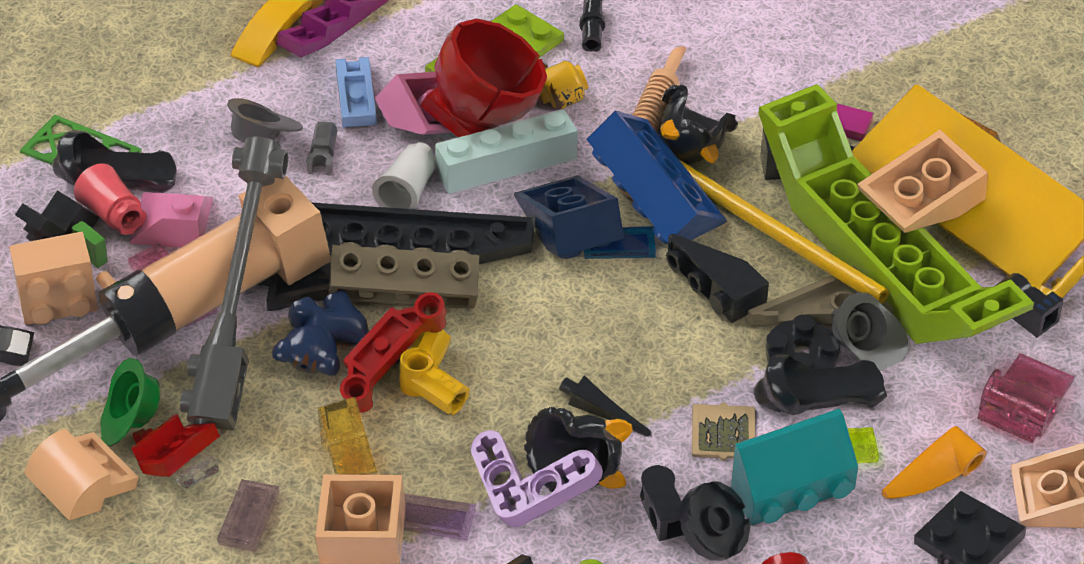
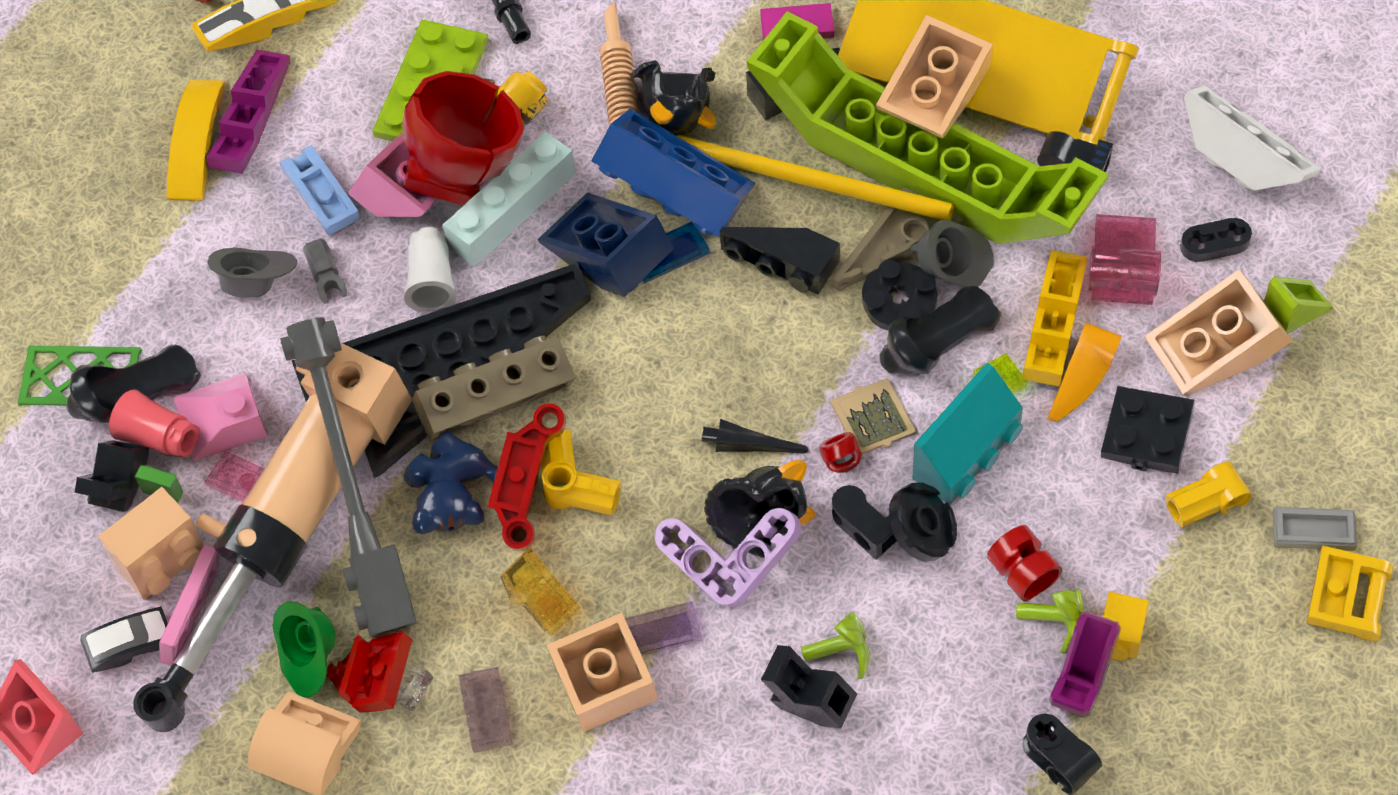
camera: 20 degrees left, 15 degrees up
(54, 333) = (189, 605): none -> bright pink tile
(676, 437) = (839, 447): none -> red tile
(940, 410) = (1054, 318): none -> yellow slope

